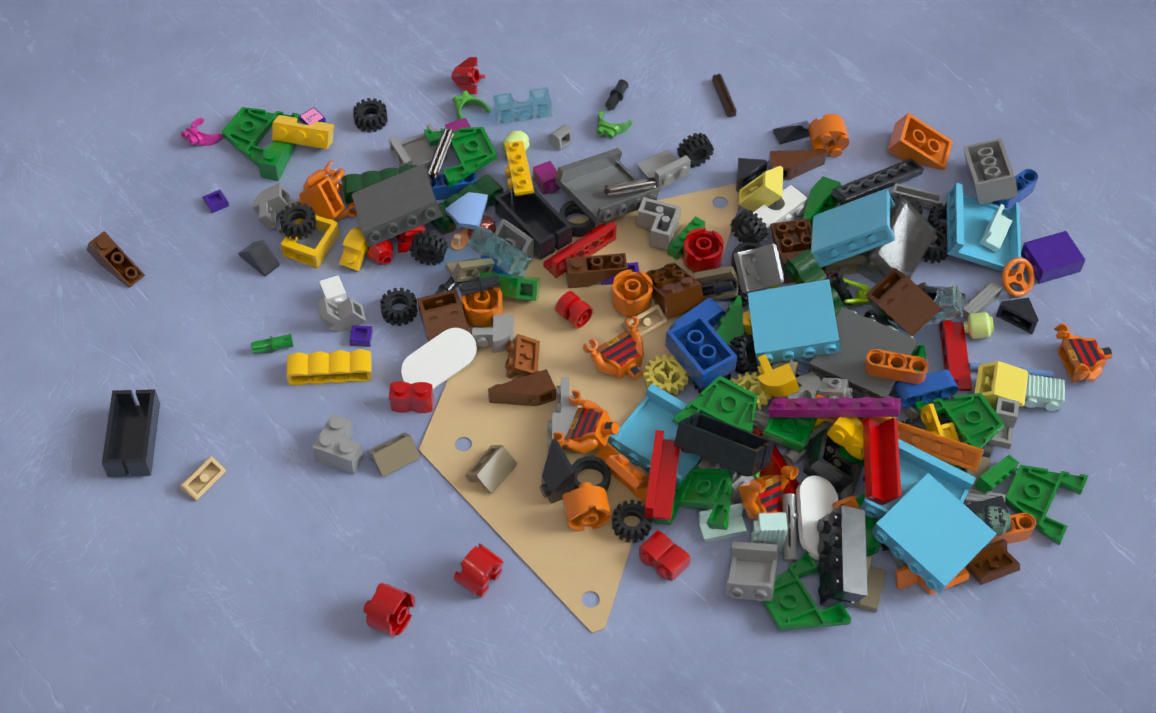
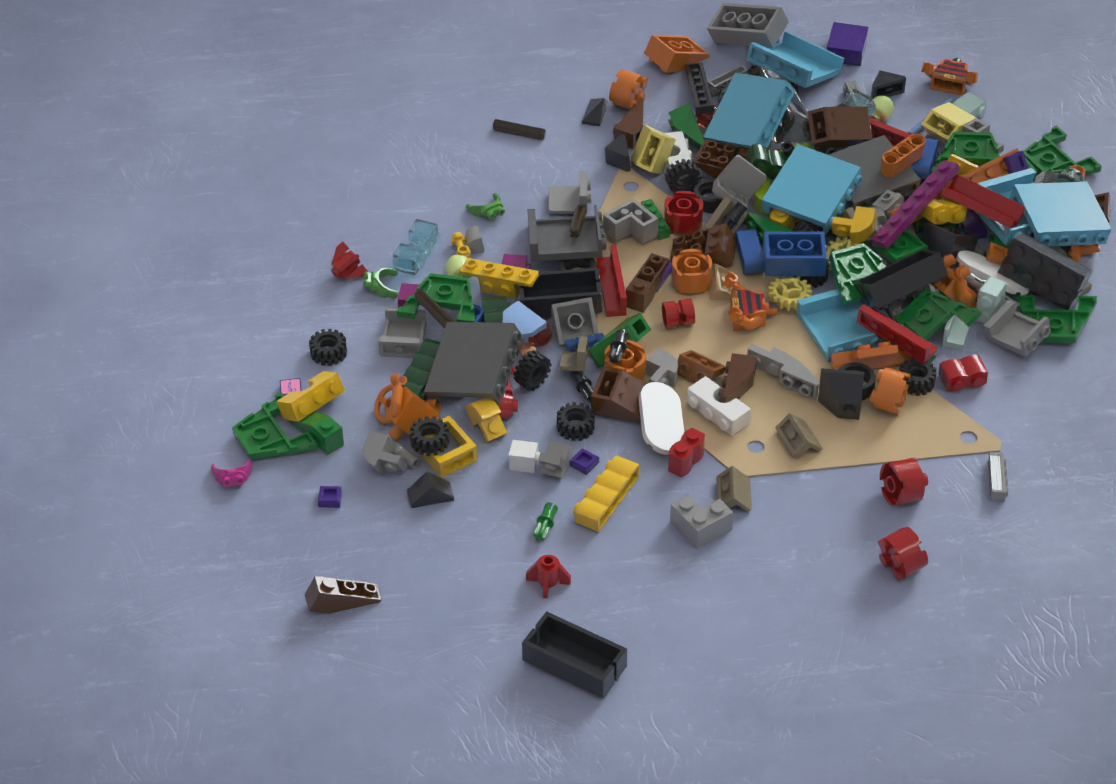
camera: 55 degrees left, 10 degrees down
(202, 478) = (656, 632): tan slope -> none
(214, 373) = (548, 573): none -> red brick
(477, 407) = (729, 416): none -> white arch
(508, 256) = (582, 325): clear light blue arch -> none
(539, 136) = (459, 240): none -> yellow bar
(549, 644) = (997, 477): none -> light grey piece
(589, 427) = (812, 351): orange torso -> none
(616, 94) = (457, 187): black axle -> none
(697, 149) = (571, 166): black tyre -> none
(967, 460) = (1016, 162): none -> dark purple tile
(995, 230) = (801, 52): light aqua panel -> none
(1016, 276) = (852, 68): orange piece -> none

